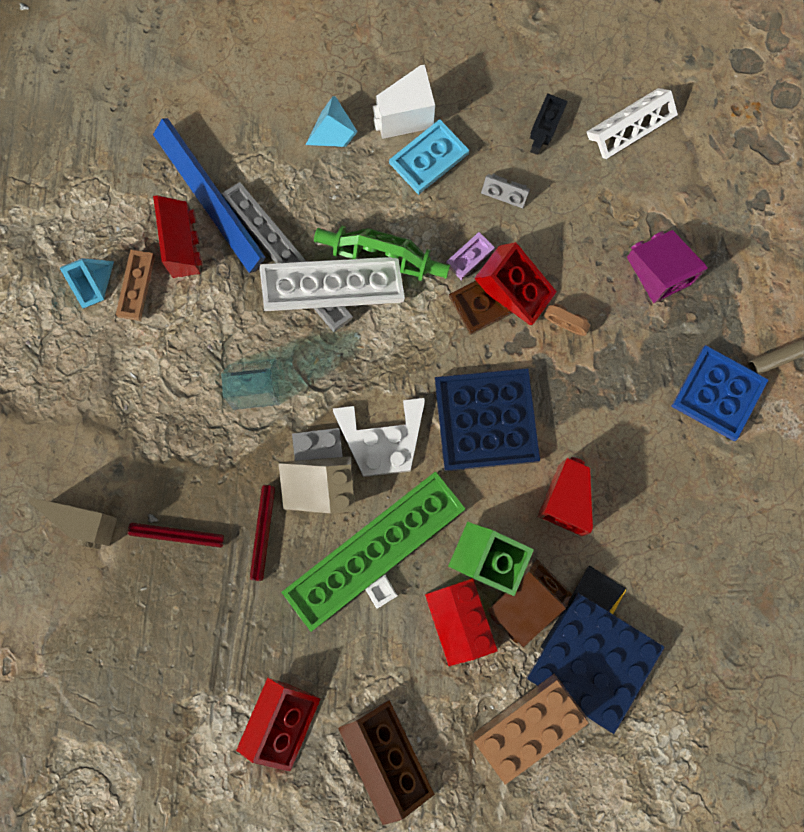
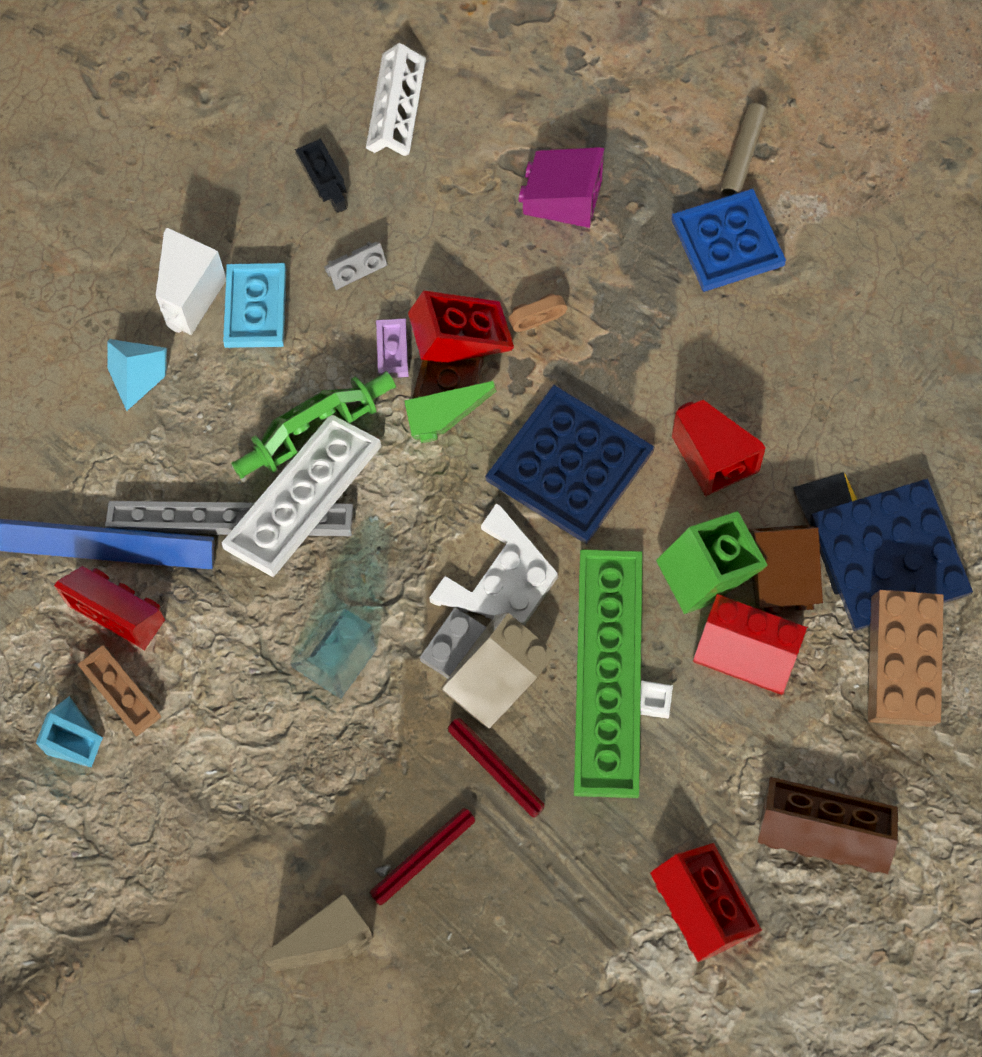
camera: 45 degrees left, 10 degrees down
(451, 318) = (441, 411): none -> bright green slope

